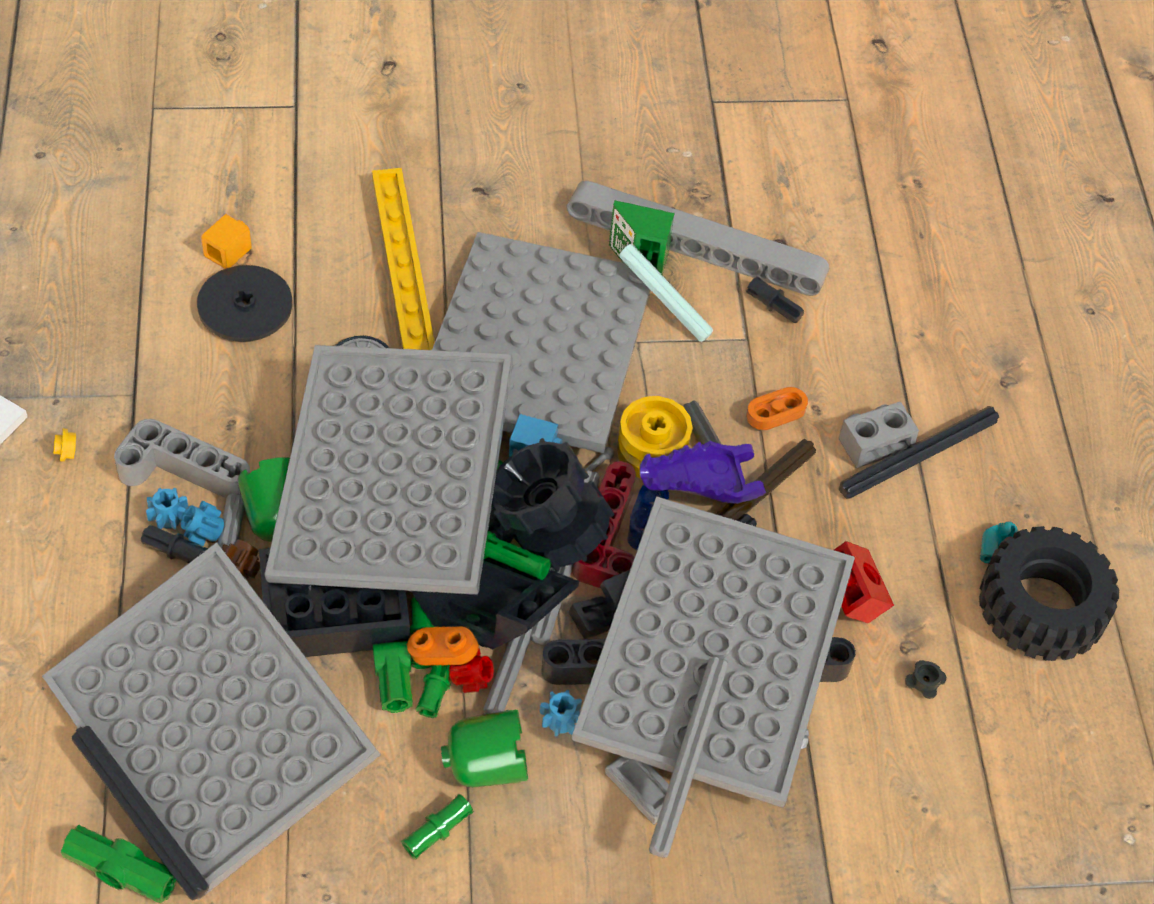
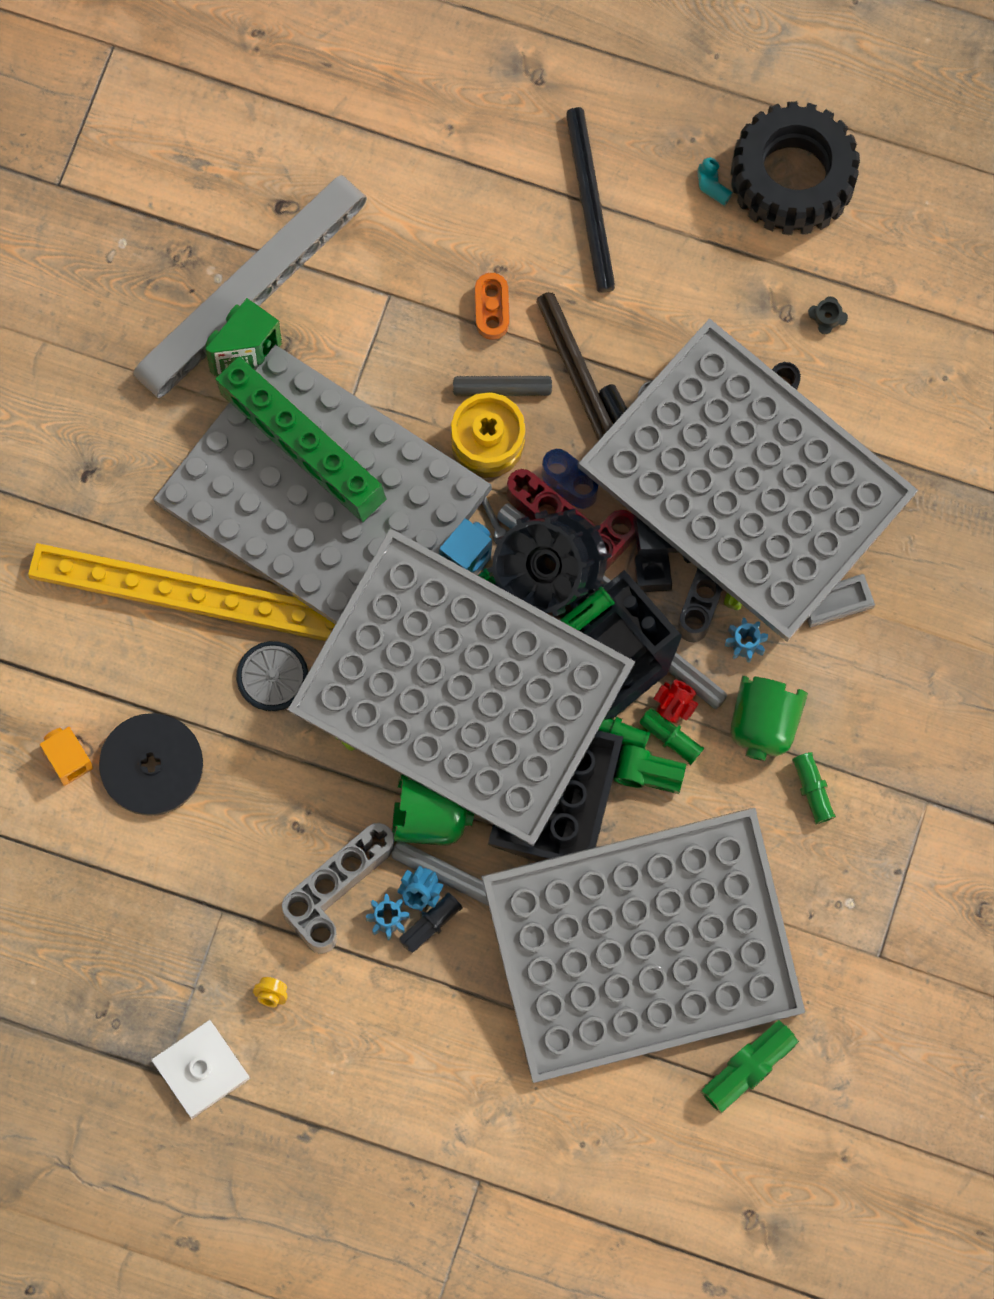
camera: 65 degrees left, 20 degrees up
(140, 813) = (711, 1033): black axle -> none
(243, 557) = (480, 864): reddish brown gear -> none
(437, 646) = (650, 716): orange plate -> none
(571, 296) = (301, 439): none -> green brick
(666, 292) = (316, 348): light aqua axle -> none
(688, 758) = (850, 549): light grey axle -> none
(703, 470) = (555, 410): dark purple animal -> none
(774, 299) = (359, 246): black axle -> none
(865, 591) = (733, 319): red brick -> none
(877, 434) = (564, 228): light grey brick -> none

